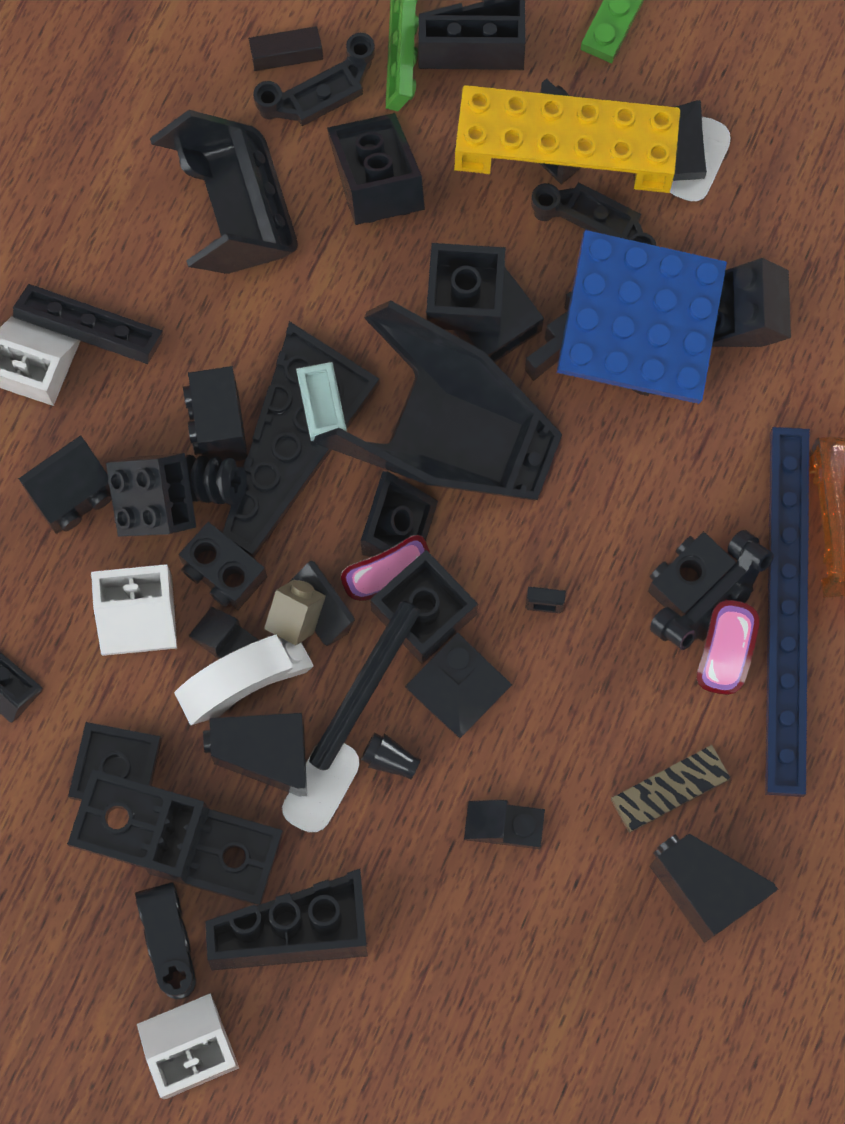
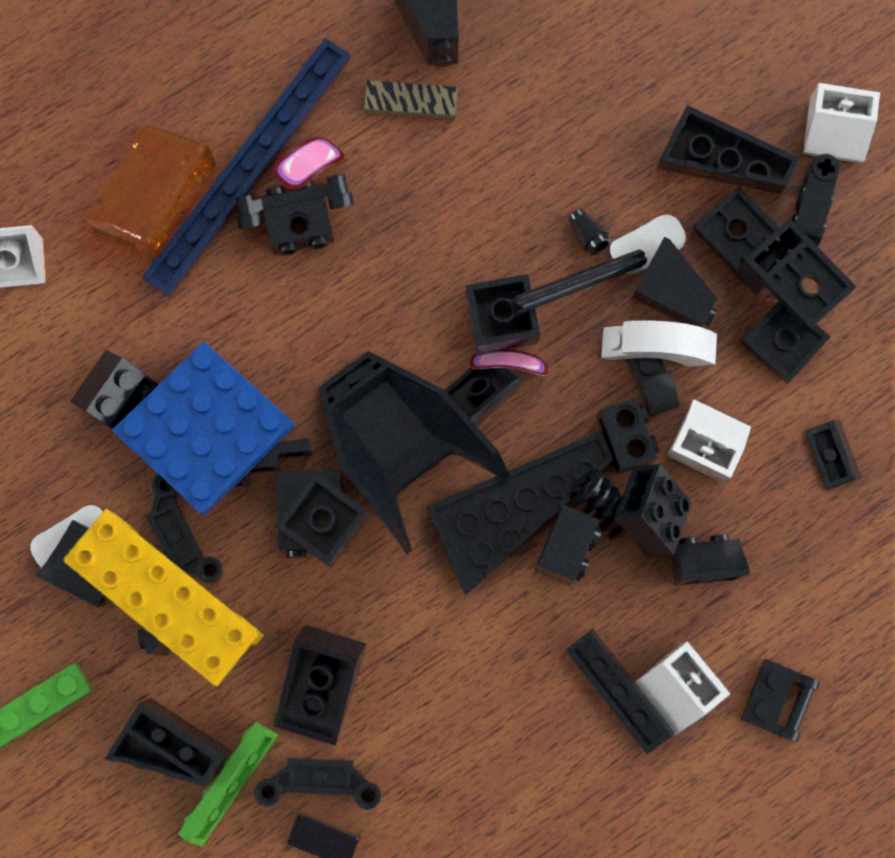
camera: 150 degrees left, 5 degrees up
(241, 189) = (437, 724): black windscreen -> none
(295, 611) = (596, 366): dark tan brick -> none
(320, 398) = (481, 513): light aqua tile -> none
(335, 617) = (573, 366): black slope -> none
(458, 685) = (511, 249): black plate -> none
(504, 824) = (539, 143): black slope -> none
(545, 600) = (411, 271): black tile -> none

